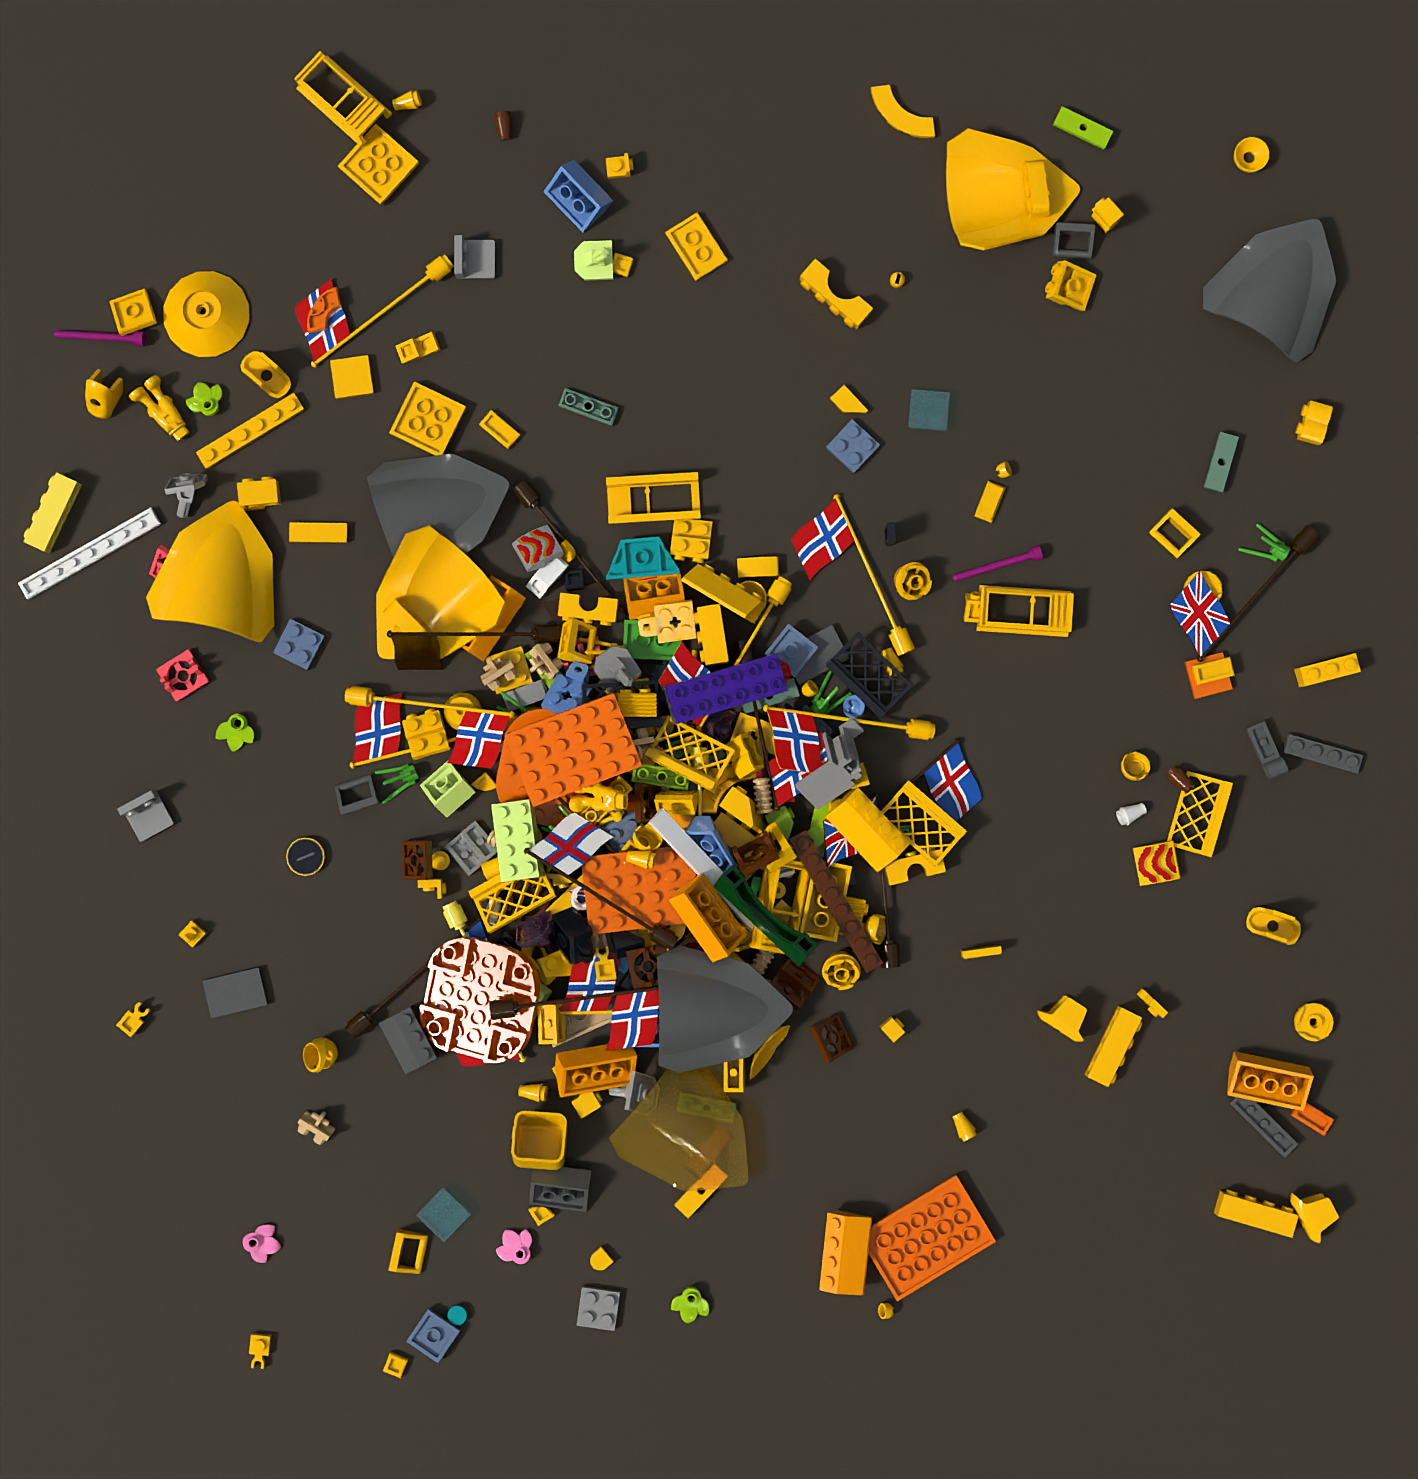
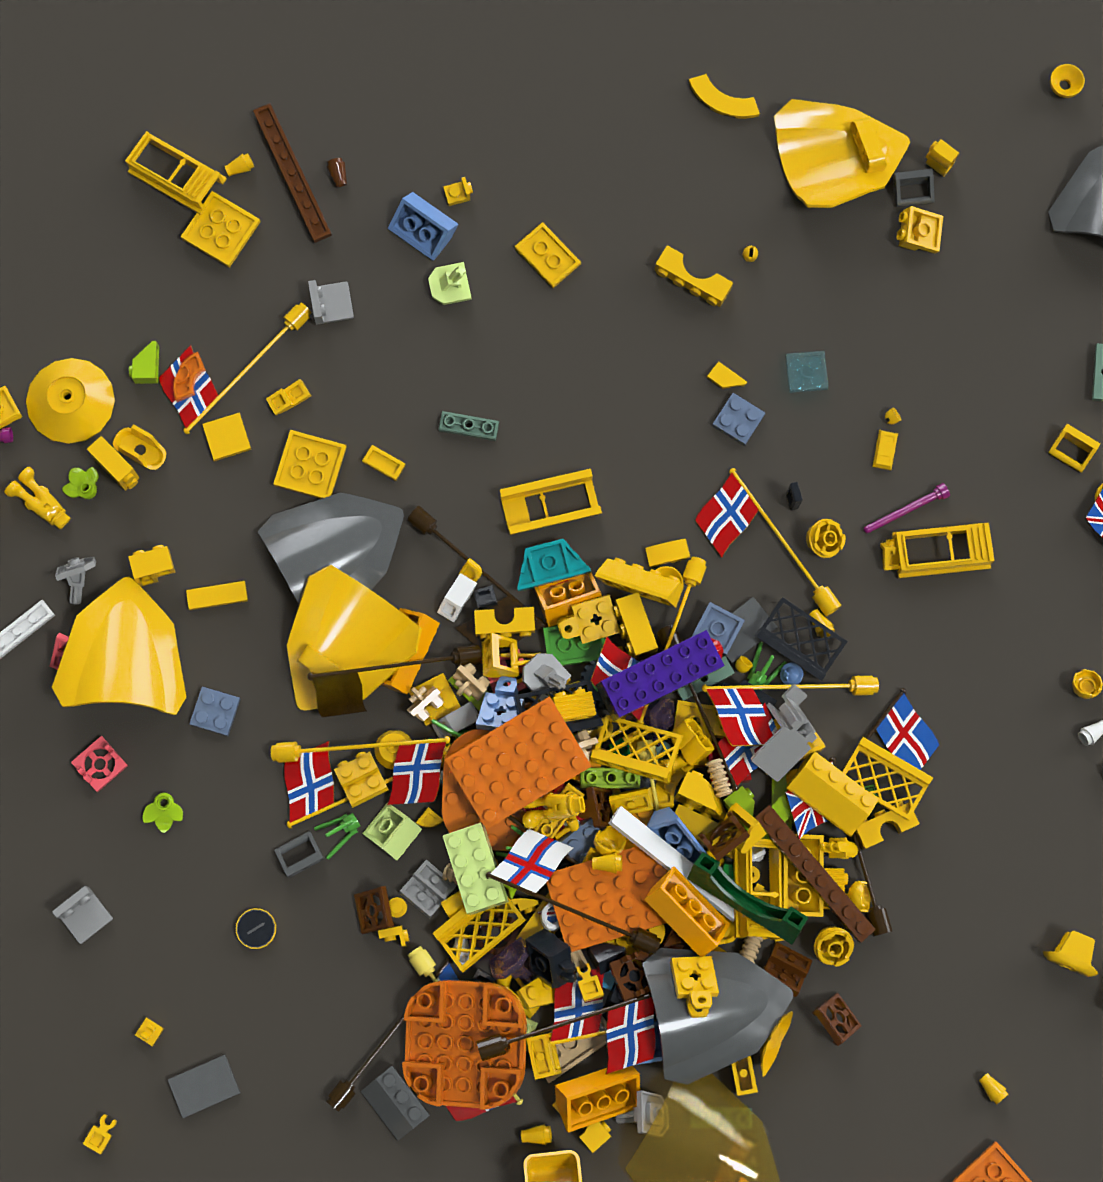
camera: 15 degrees left, 10 degrees down
(237, 386) = (113, 463): none -> yellow brick
(250, 431) = (132, 507): yellow plate -> none
(284, 291) = (146, 365): none -> lime slope
(320, 1053) = (304, 1134): yellow helmet -> none
(458, 117) = (292, 173): none -> reddish brown plate
(537, 548) = (442, 571): slope -> none
(622, 264) = (477, 284): yellow tile -> none
(691, 540) = (595, 537): yellow plate -> none
(701, 994) = (698, 992): none -> yellow plate
(865, 881) = (840, 848): none -> yellow arm
(893, 1028) = (898, 998): yellow plate -> none
(982, 951) = (972, 901): yellow tile -> none
(1071, 123) = (910, 86): lime tile -> none

